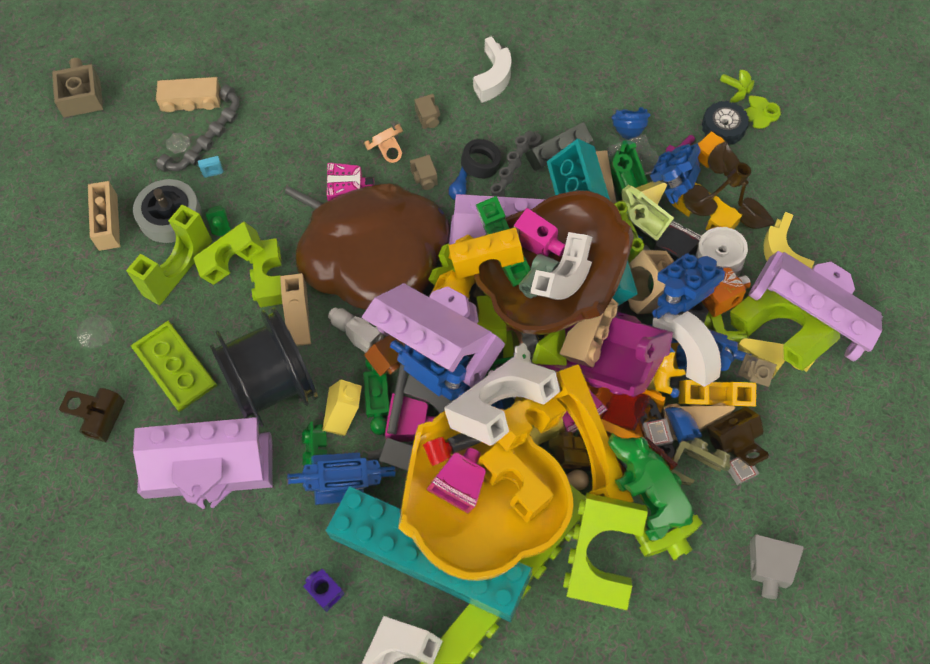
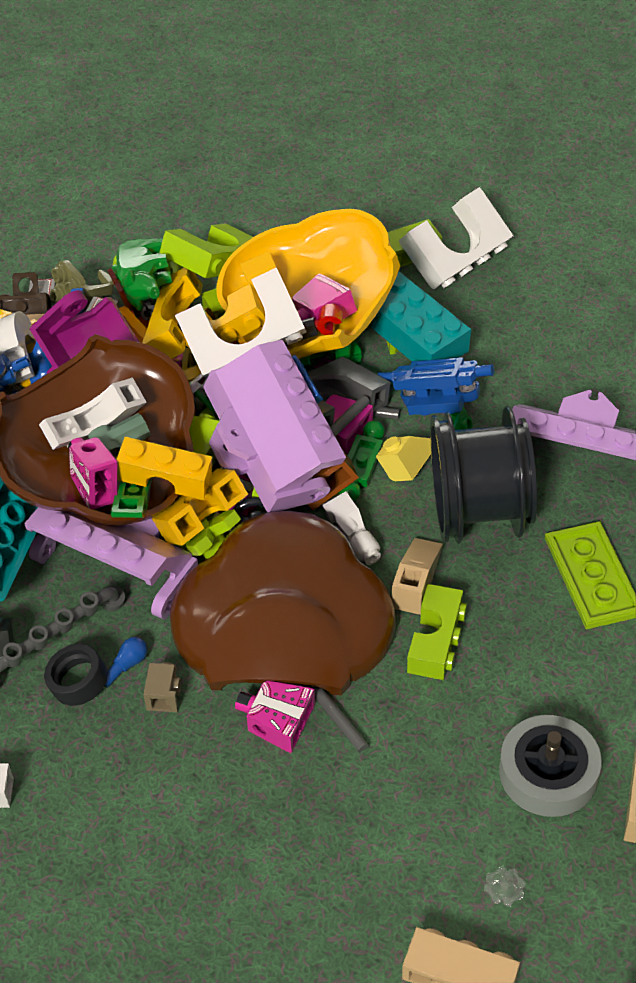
camera: 155 degrees left, 15 degrees down
(158, 281) = (594, 658): lime arch -> none
(204, 141) = (435, 891): dark grey bar -> none
(210, 166) = (464, 817): medium azure tile -> none
(213, 261) = (456, 656): lime arch -> none
(218, 221) = (480, 727): green piece -> none
(327, 599) = (491, 320): dark purple brick -> none
(385, 141) = (190, 748): light nougat tile -> none
(427, 111) = (102, 780): dark tan brick -> none
(773, 563) = (75, 220): light grey torso -> none

